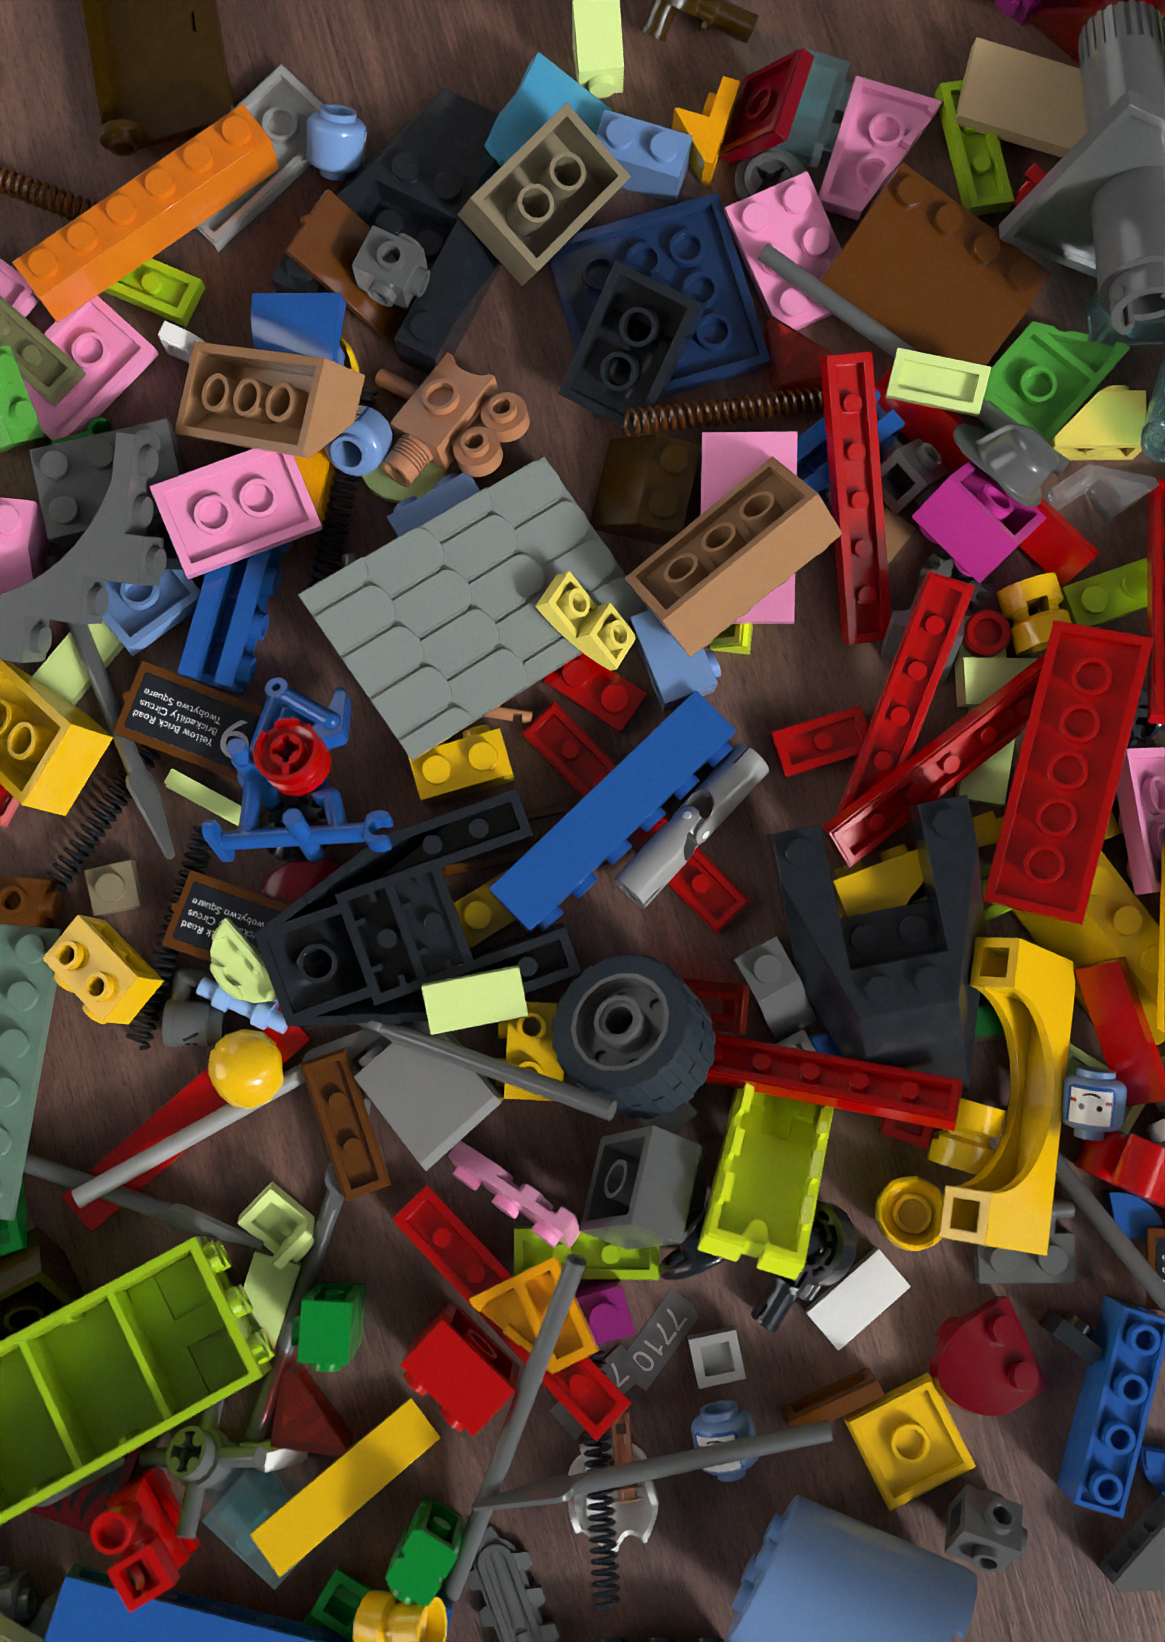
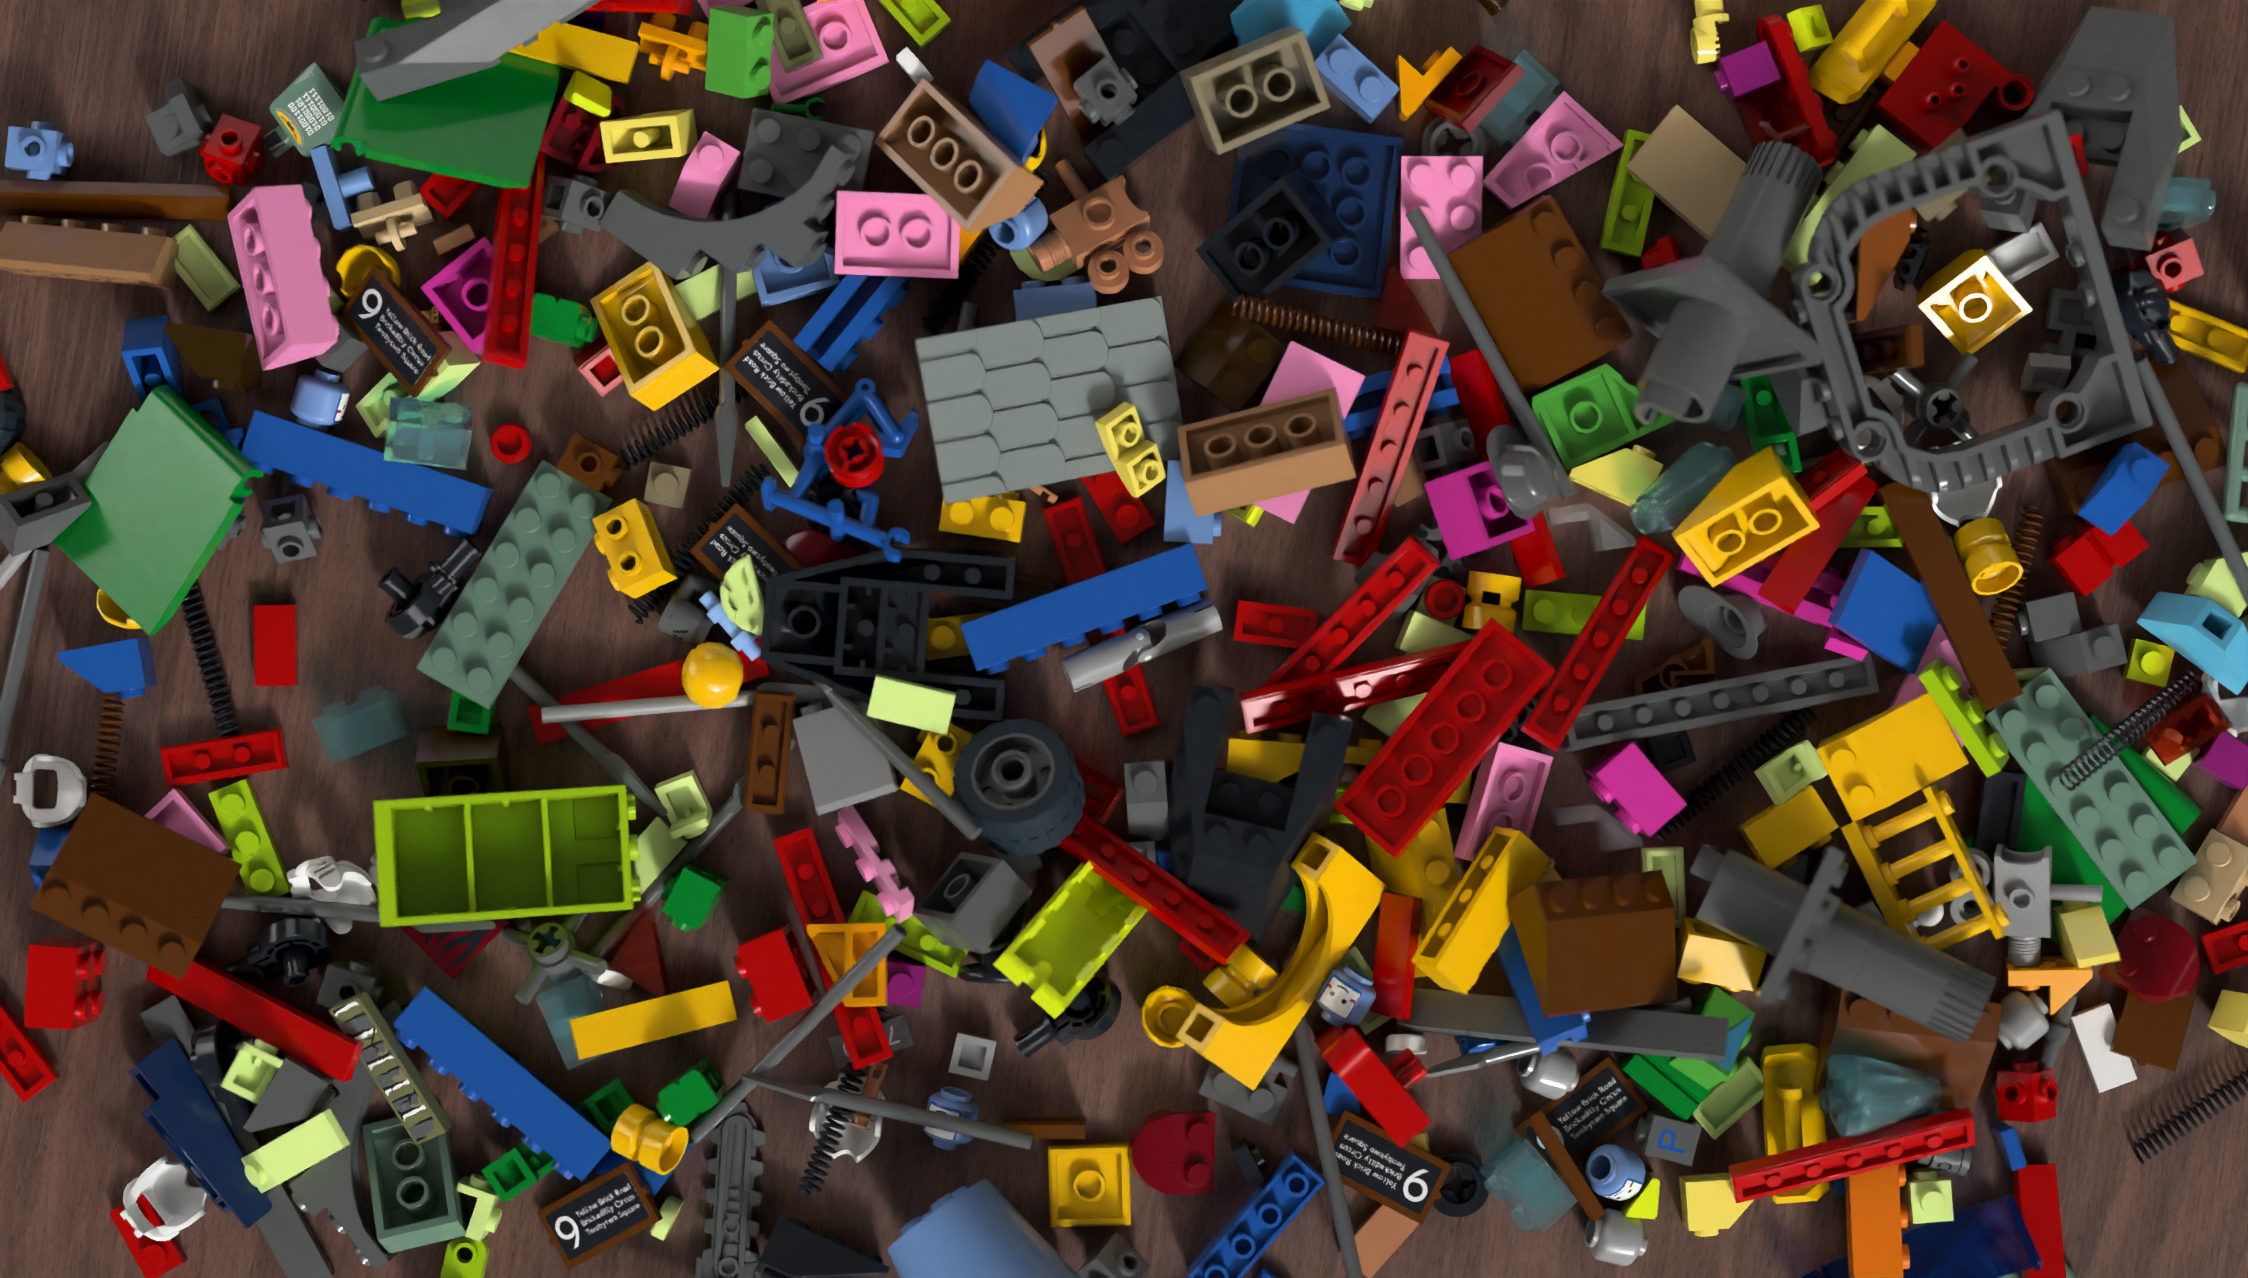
camera: 20 degrees right, 5 degrees up
(147, 1519) = (497, 979): red hips -> none
(662, 1336) = (939, 1023): flat silver sticker -> none
(857, 1298) = (1100, 1062): white tile -> none
(938, 382) = (1498, 383): yellowish green tile -> none

